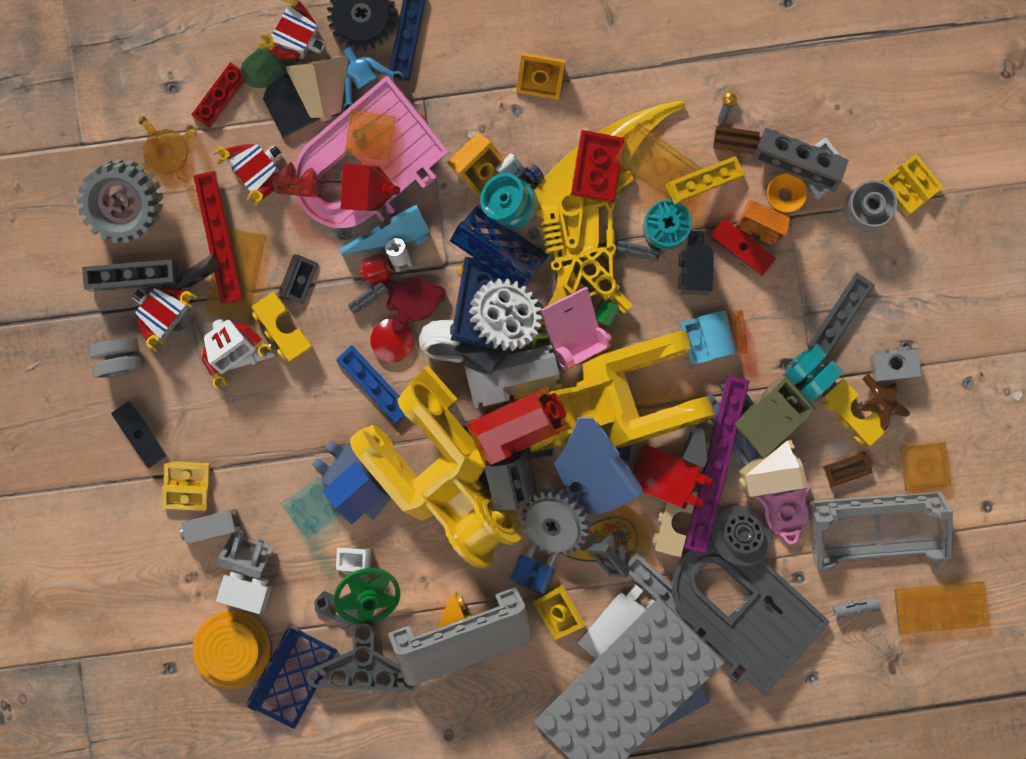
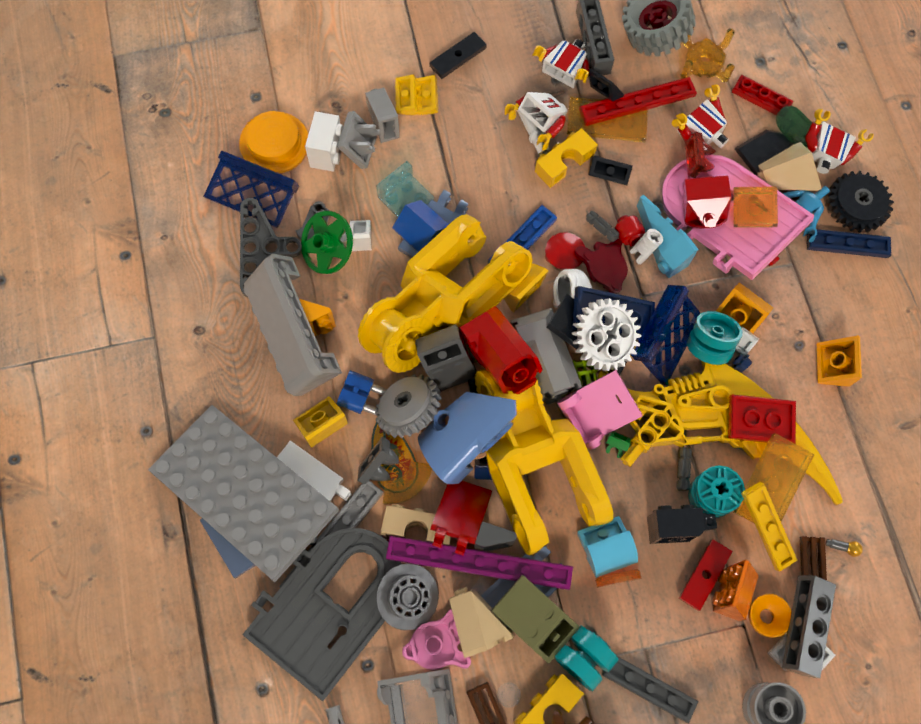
camera: 85 degrees right, 15 degrees down
(115, 357) = (522, 27): light grey wheel -> none

